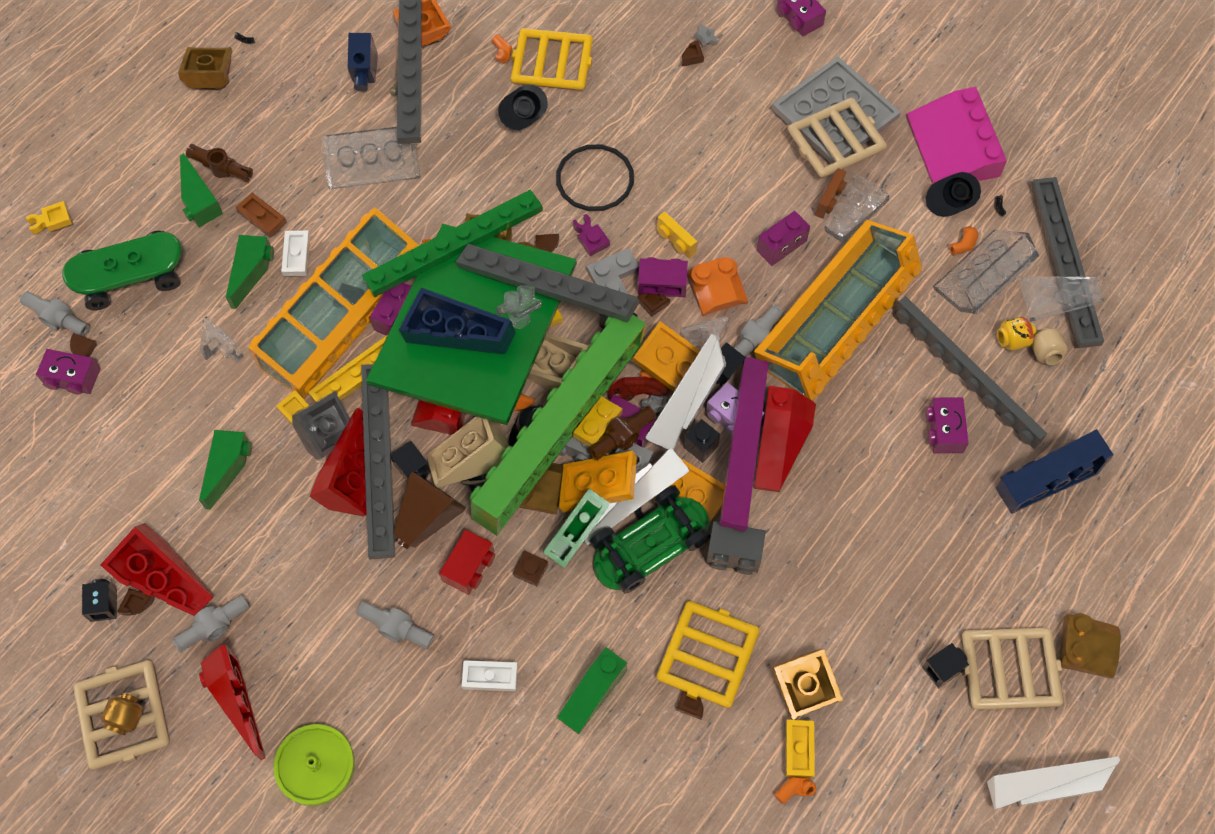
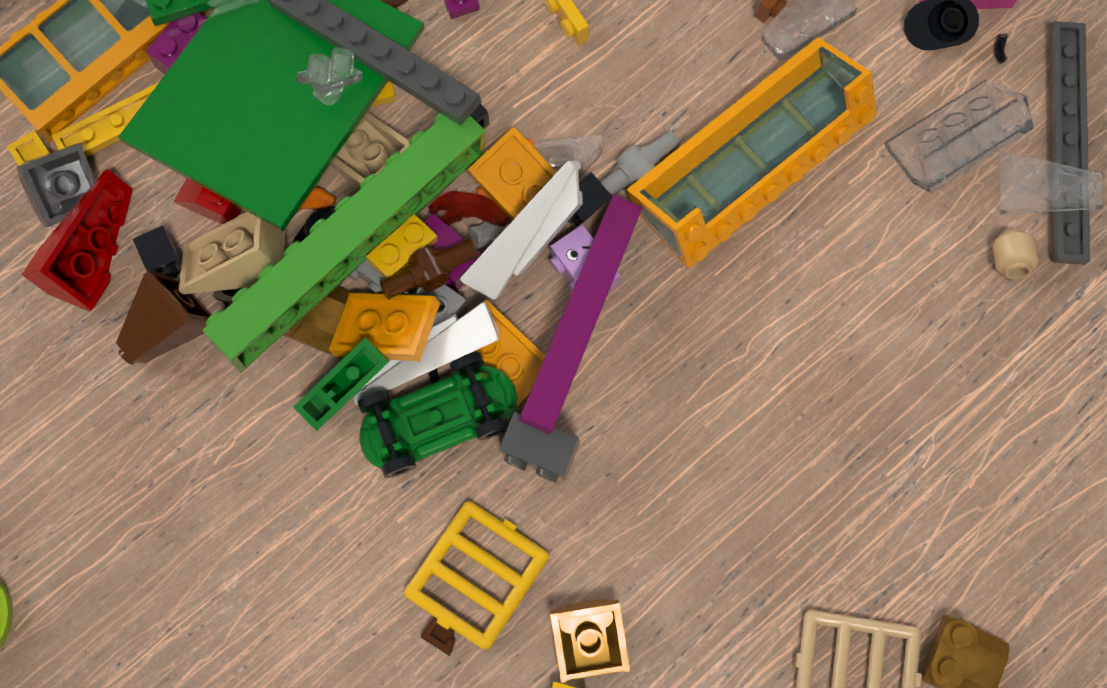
camera: 10 degrees right, 10 degrees up
(378, 470) = (115, 256): dark grey plate -> none
(395, 625) = (95, 460): light grey pin -> none
(453, 324) = (237, 83): wedge -> none
(467, 562) = (202, 397): red brick -> none
(489, 675) = (197, 548): white plate -> none
(531, 568) = (280, 420): reddish brown plate -> none
(593, 690) = (320, 594): green slope -> none
(612, 269) = (468, 45): light grey plate -> none
(653, 302) = (516, 97): reddish brown tile -> none
(663, 277) = (534, 66): magenta brick -> none
(702, 440) = (533, 295): black brick -> none
(717, 285) = (603, 89): orange slope -> none
(783, 238) = (703, 41): magenta brick -> none
(784, 432) = (643, 301): red wedge -> none
(945, 665) = (773, 651): black brick -> none
(947, 425) = (855, 335): magenta brick -> none
(966, 369) = (906, 277): dark grey plate -> none
(968, 241) = (944, 92): orange arm -> none
(1016, 333) = (976, 228): yellow head -> none
(1054, 472) = (978, 425): dark blue wedge -> none

